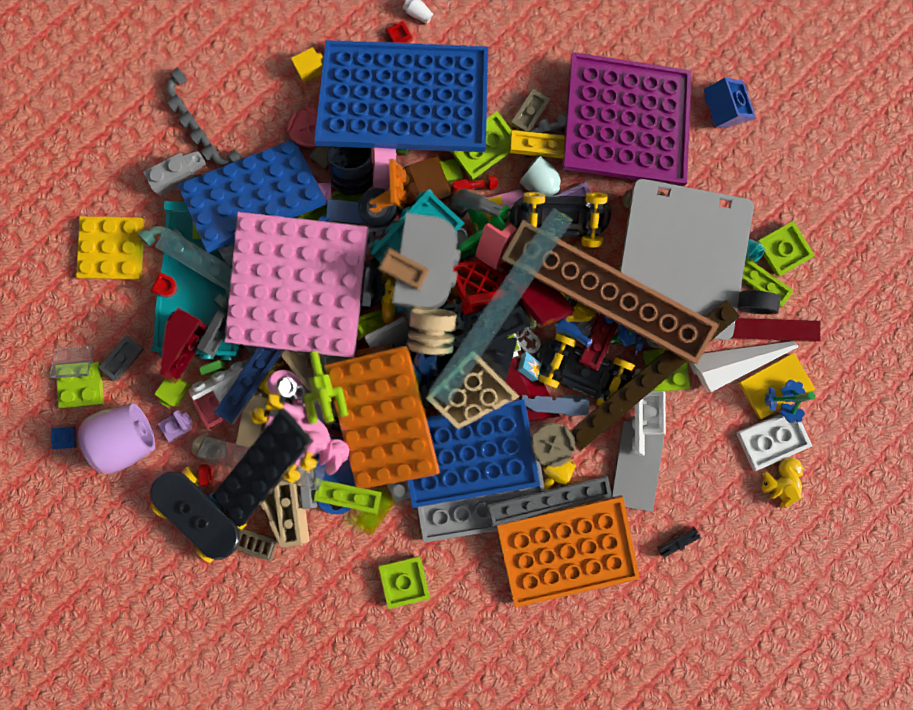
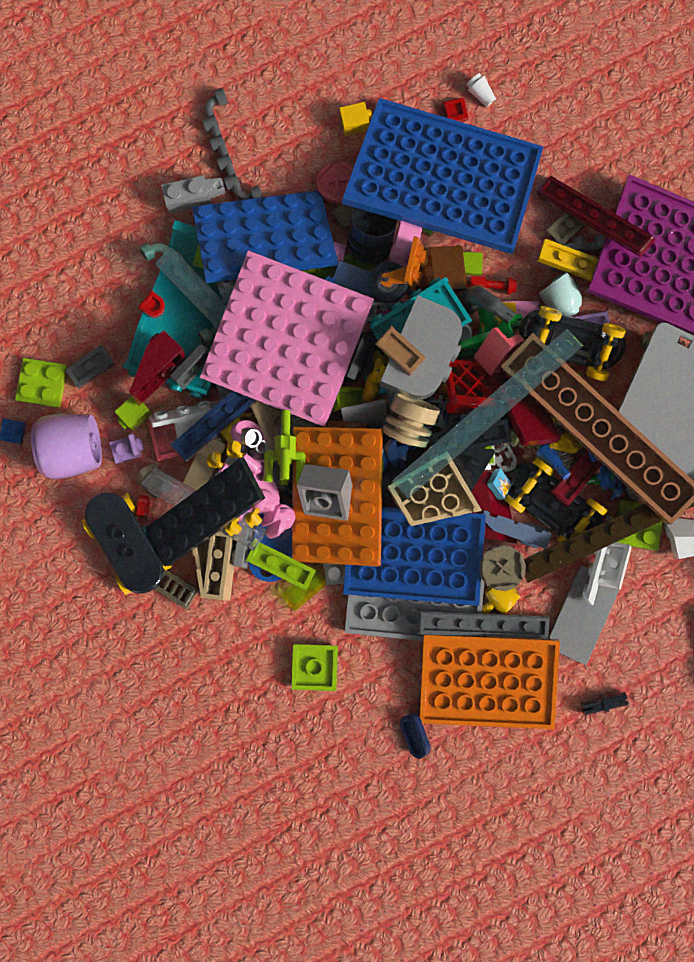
camera: 25 degrees right, 0 degrees up
(71, 362) = (40, 357): clear piece -> none
(110, 248) = (107, 253): yellow plate -> none
(212, 368) = (178, 400): bright green tile -> none
(369, 418) = (325, 491): none -> light grey slope
(496, 148) = (525, 252): lime plate -> none
(513, 620) = (415, 735): none -> dark blue tile
(552, 97) = (596, 216): none -> dark red tile

